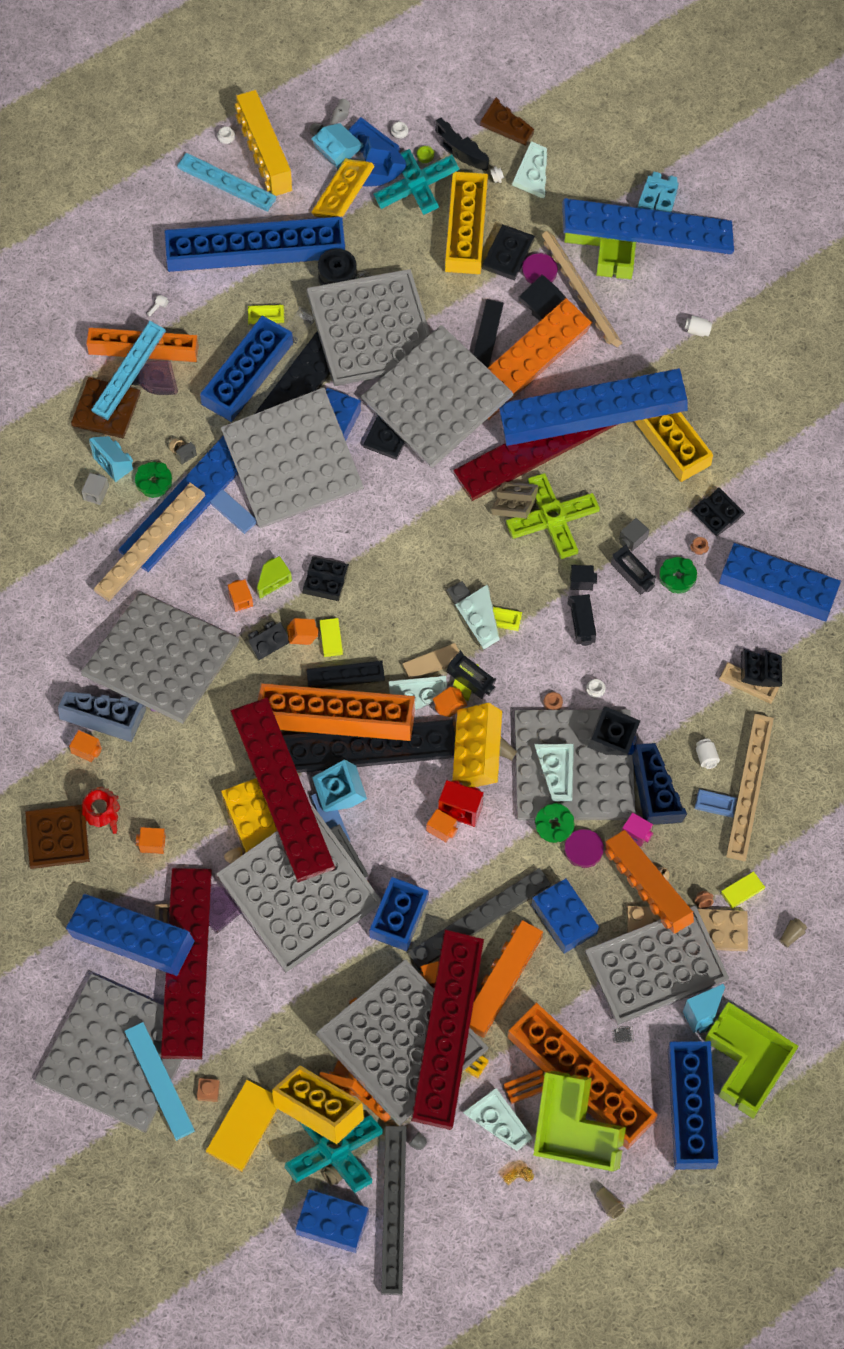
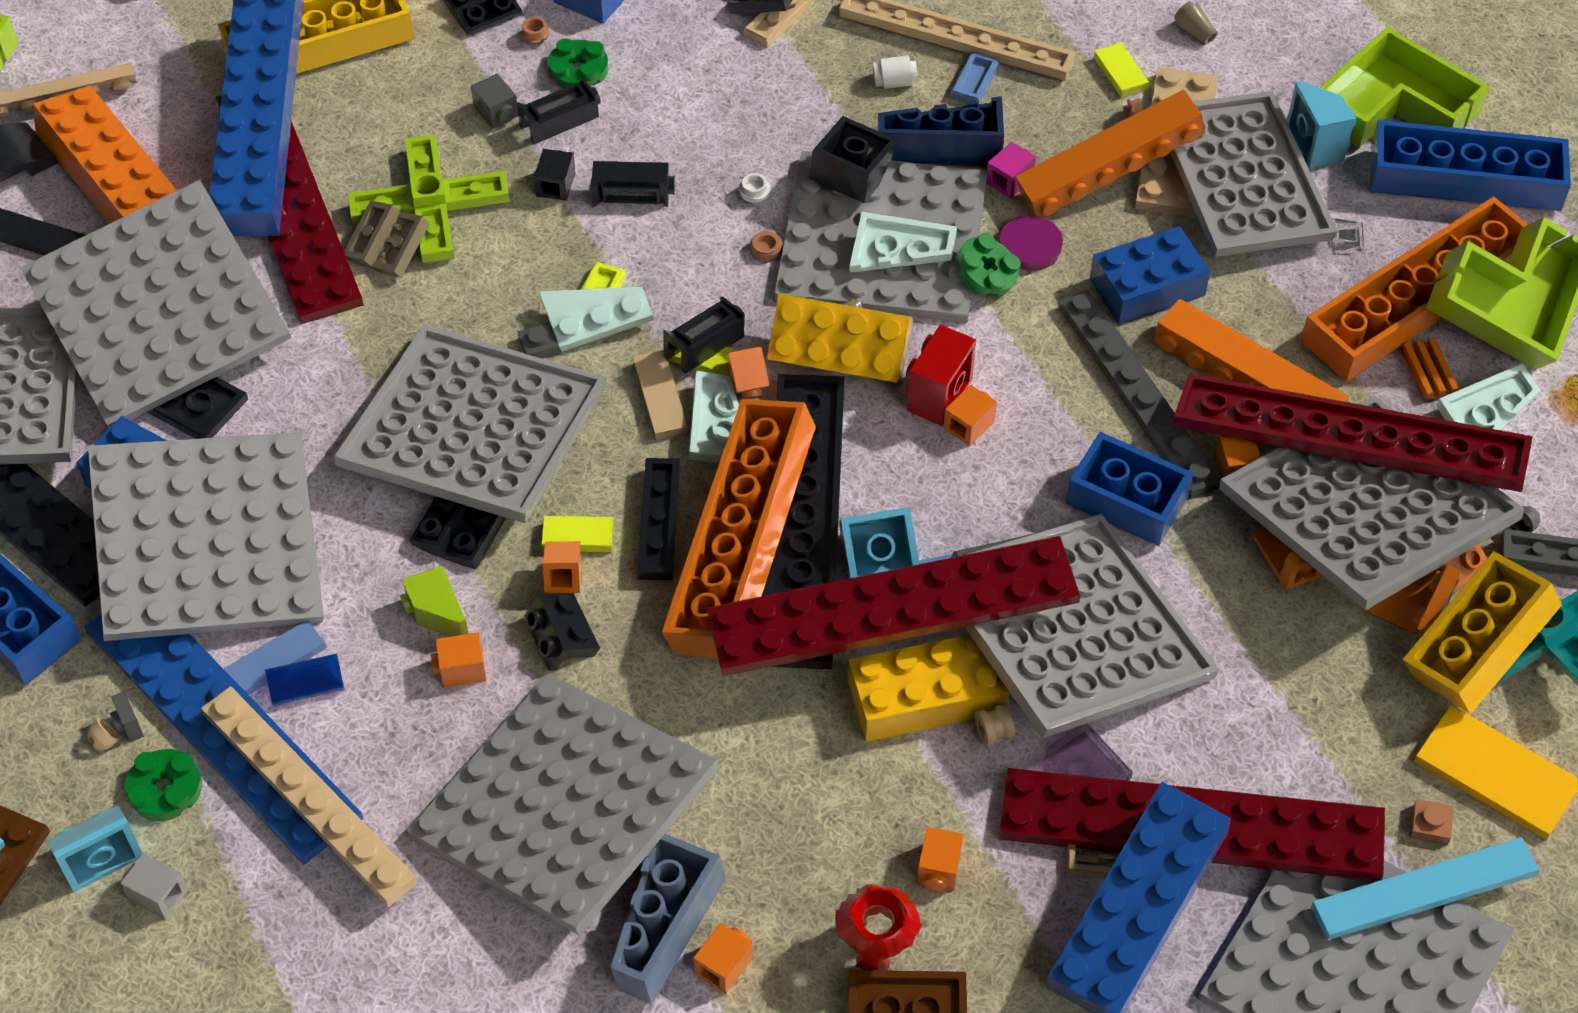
camera: 80 degrees left, 10 degrees down
(220, 527) = (304, 679): none -> clear blue tile
(390, 569) = (472, 423): none -> light grey plate

